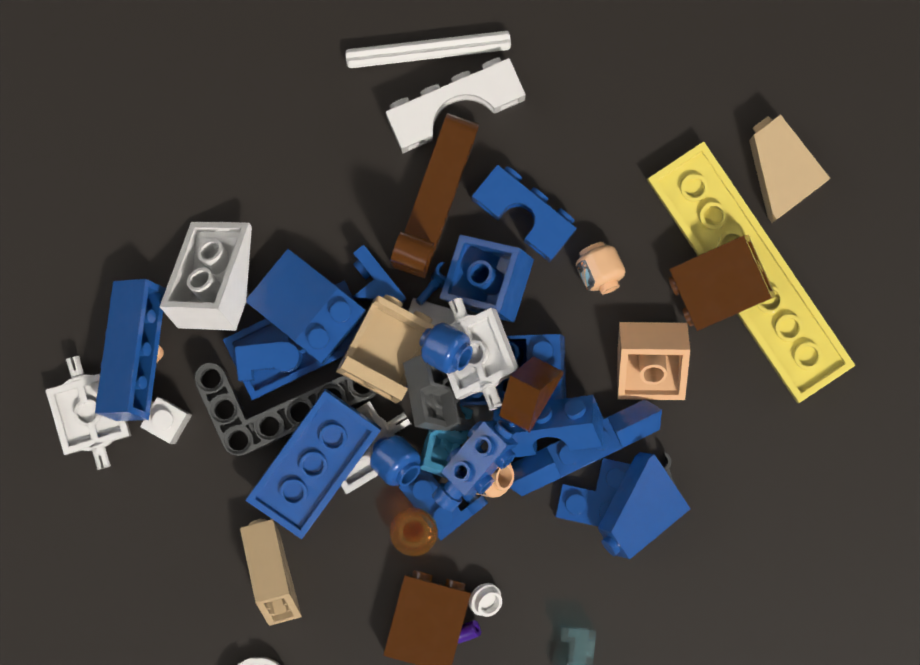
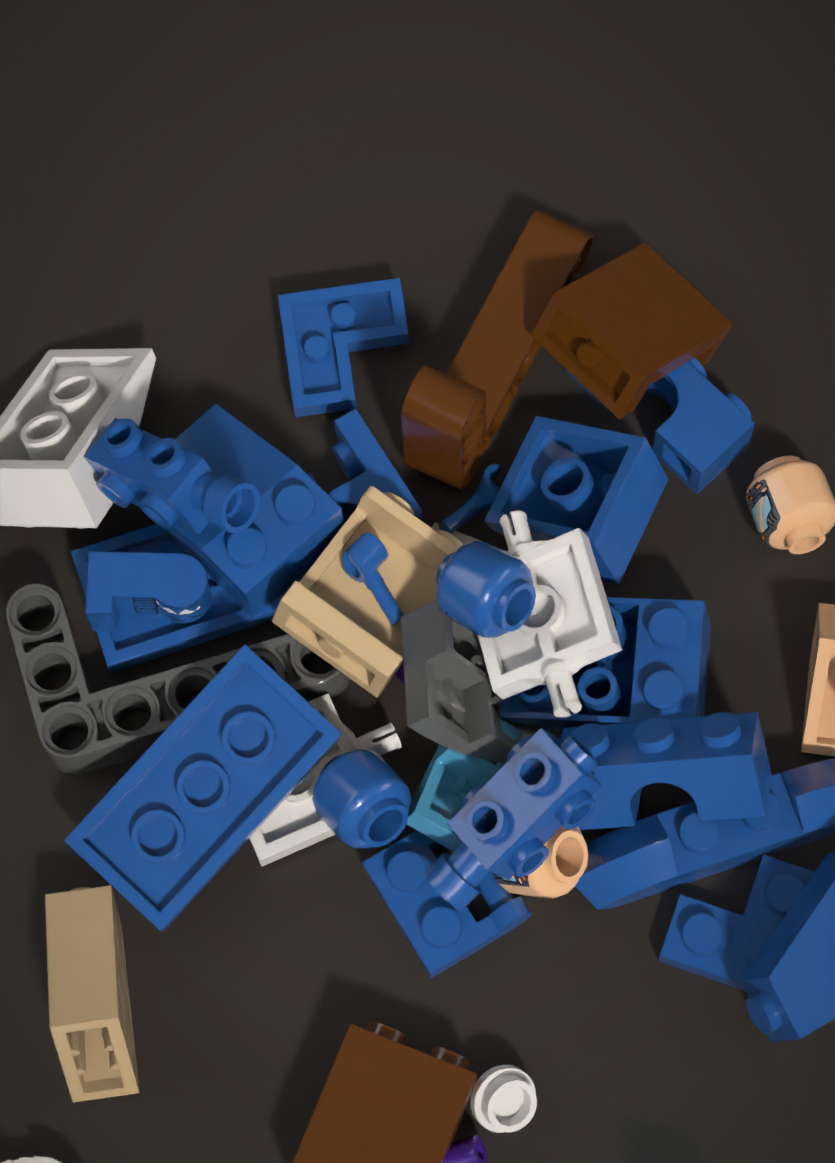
camera: 10 degrees right, 15 degrees down
(273, 309) = (169, 481): none -> blue brick
(340, 193) = (325, 327): none -> blue plate
(378, 333) = (361, 564): none -> blue hand
(413, 532) = (379, 943): clear orange brick -> none
(428, 49) = (517, 108): white axle -> none
(494, 87) = (623, 176): white arch -> none
(505, 181) = (629, 327): none -> reddish brown panel
(529, 392) = (632, 691): reddish brown slope -> none

